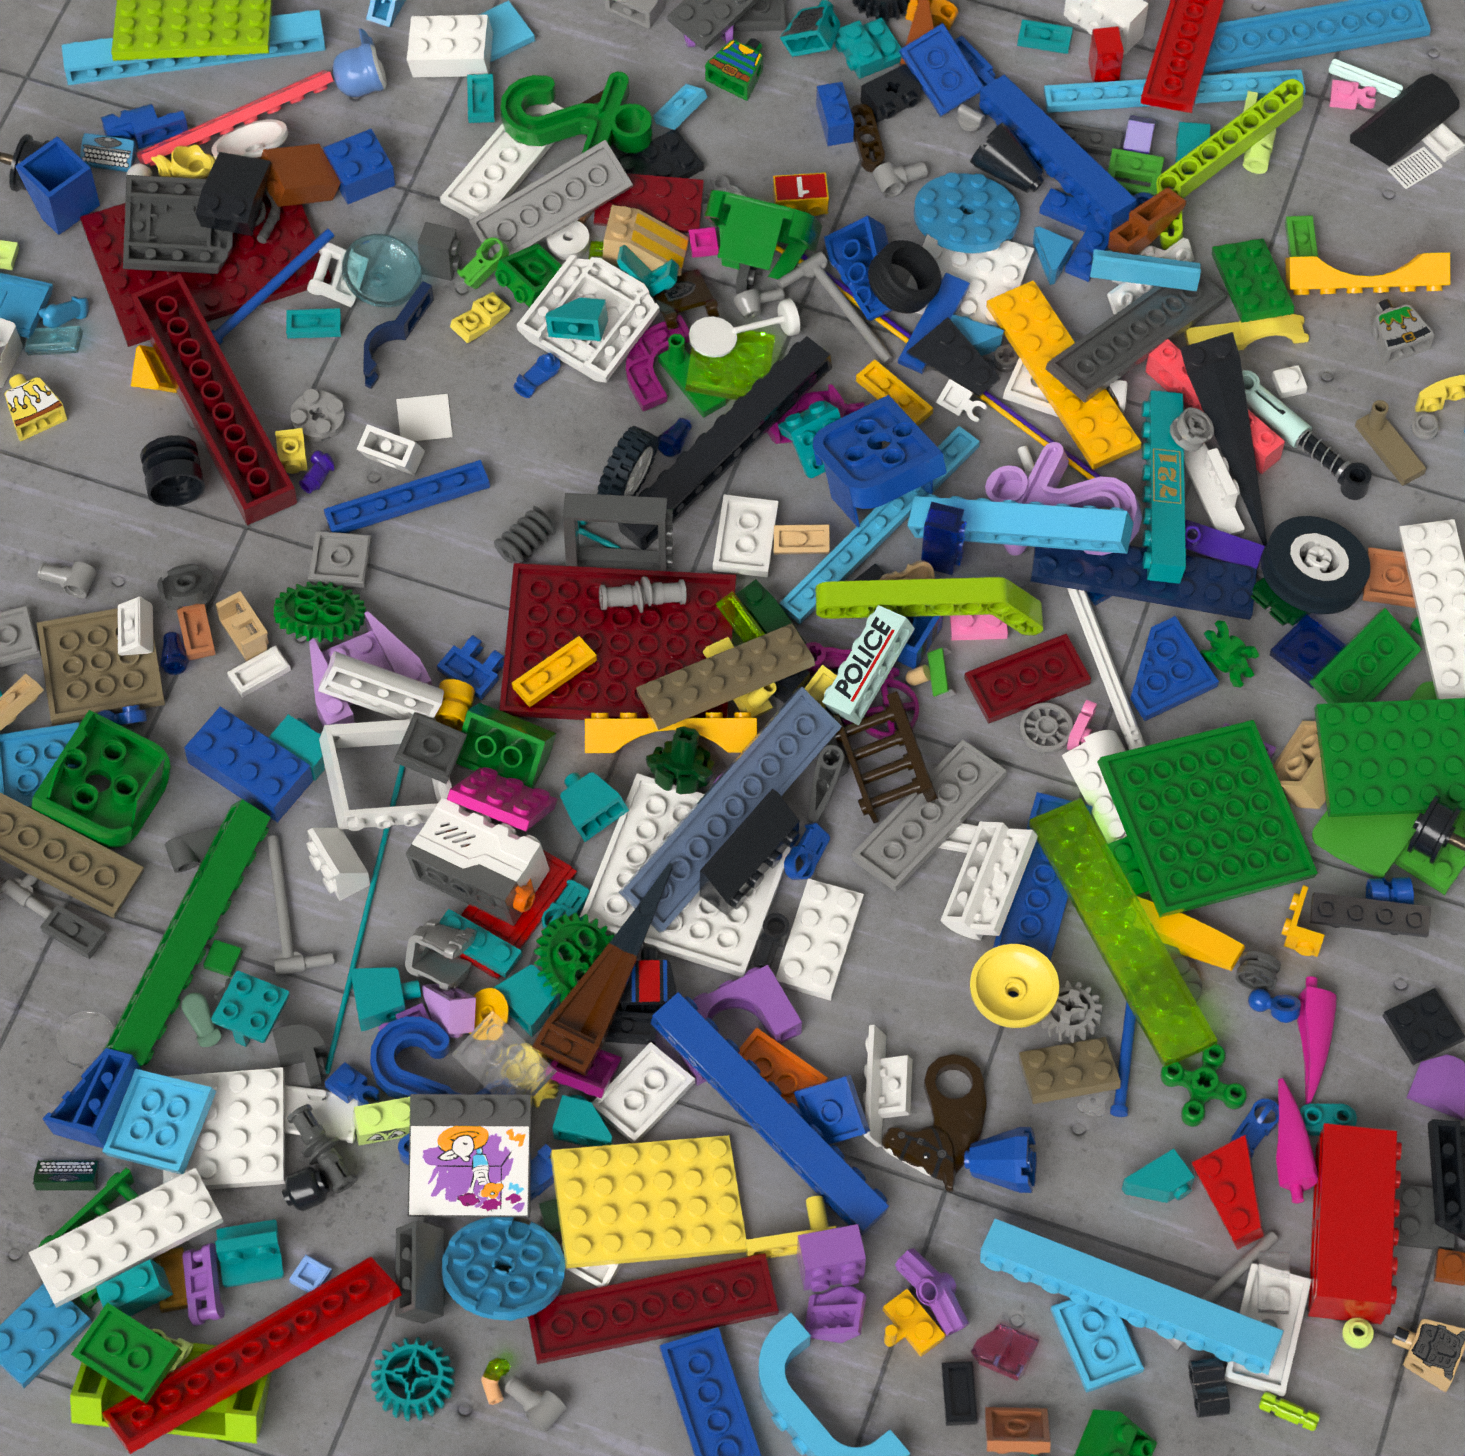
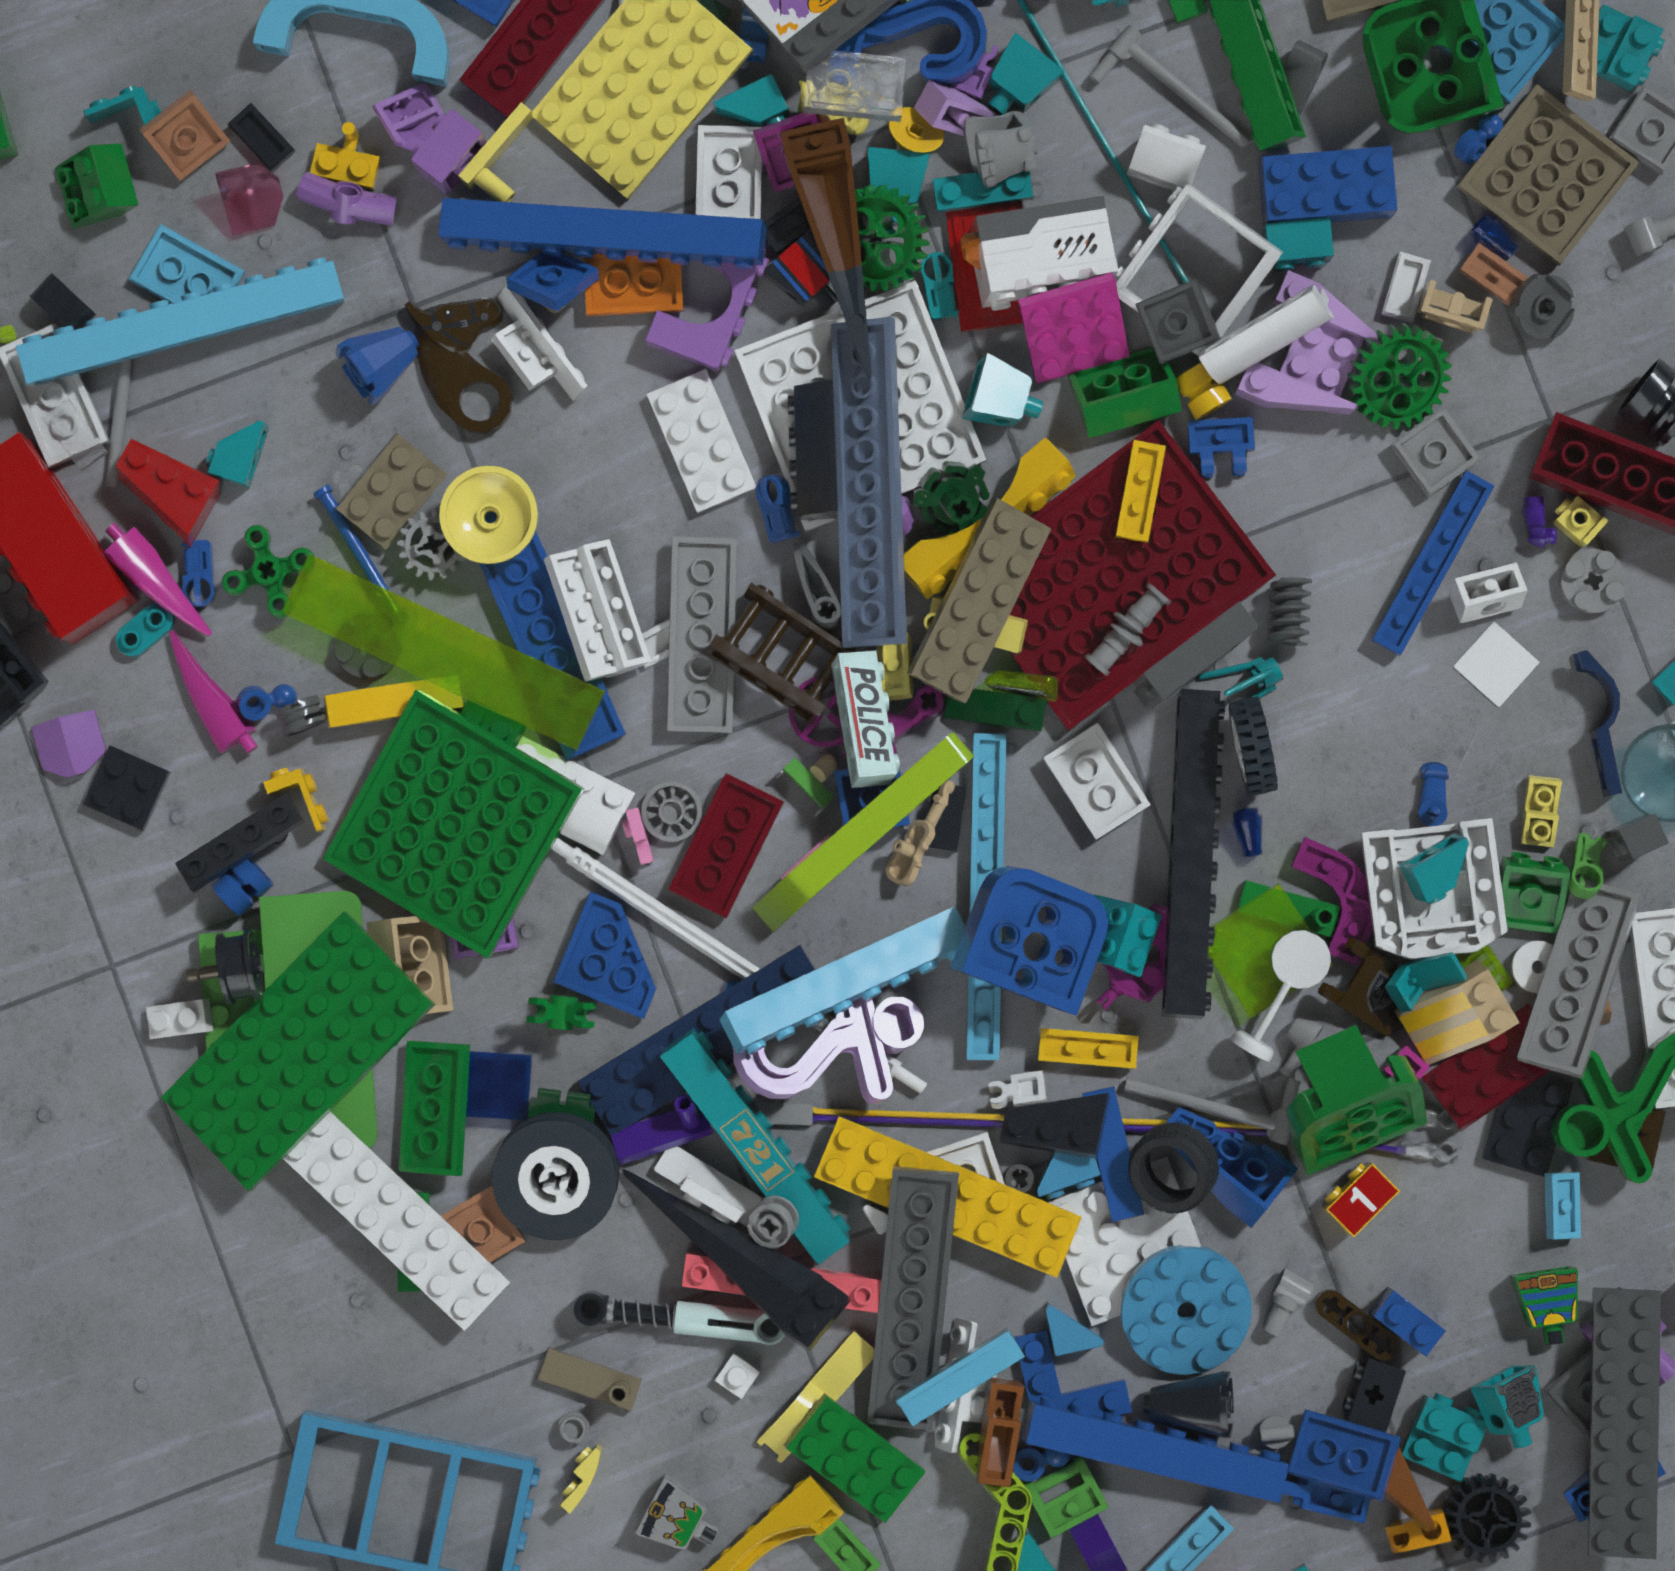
camera: 140 degrees right, 25 degrees up
(135, 627) = (1547, 228): white slope -> none
(769, 941) = (739, 400): black axle -> none
(801, 539) = (1040, 814): tan plate -> none
(944, 537) = (905, 910): clear blue brick -> none
(1093, 139) = (1148, 1505): dark grey tile -> none

